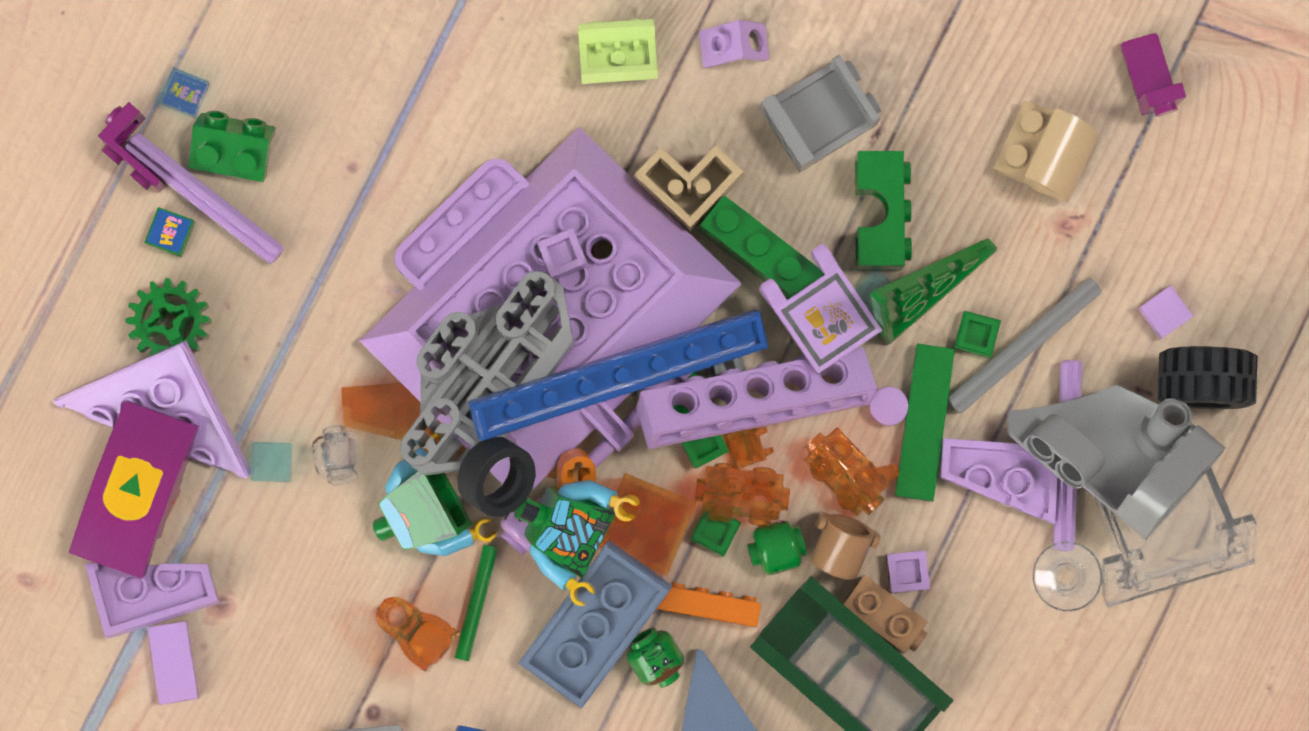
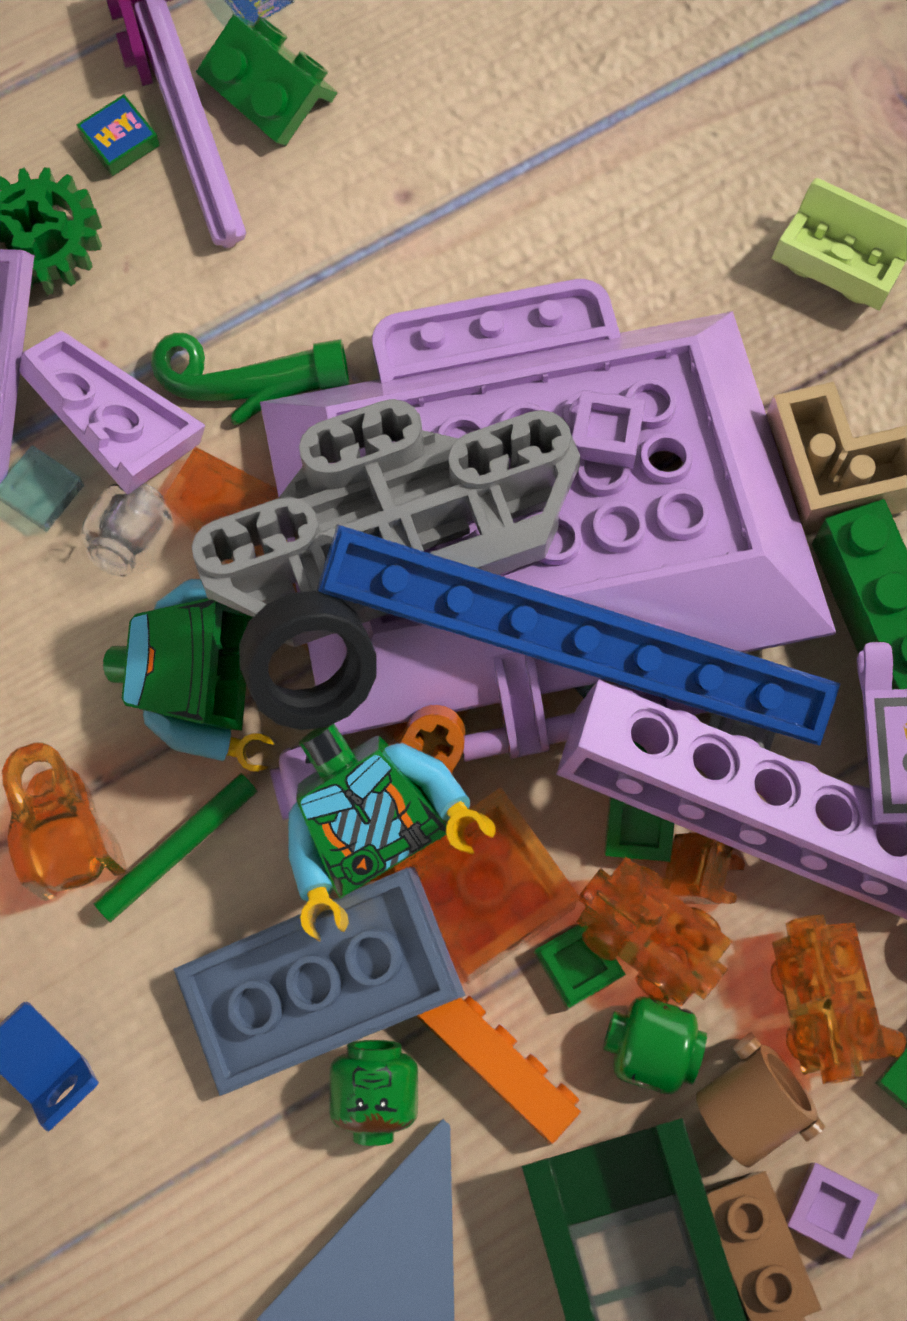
camera: 40 degrees right, 10 degrees down
(283, 397) = (109, 411): none -> lavender wing
(349, 329) = (268, 380): none -> green plant

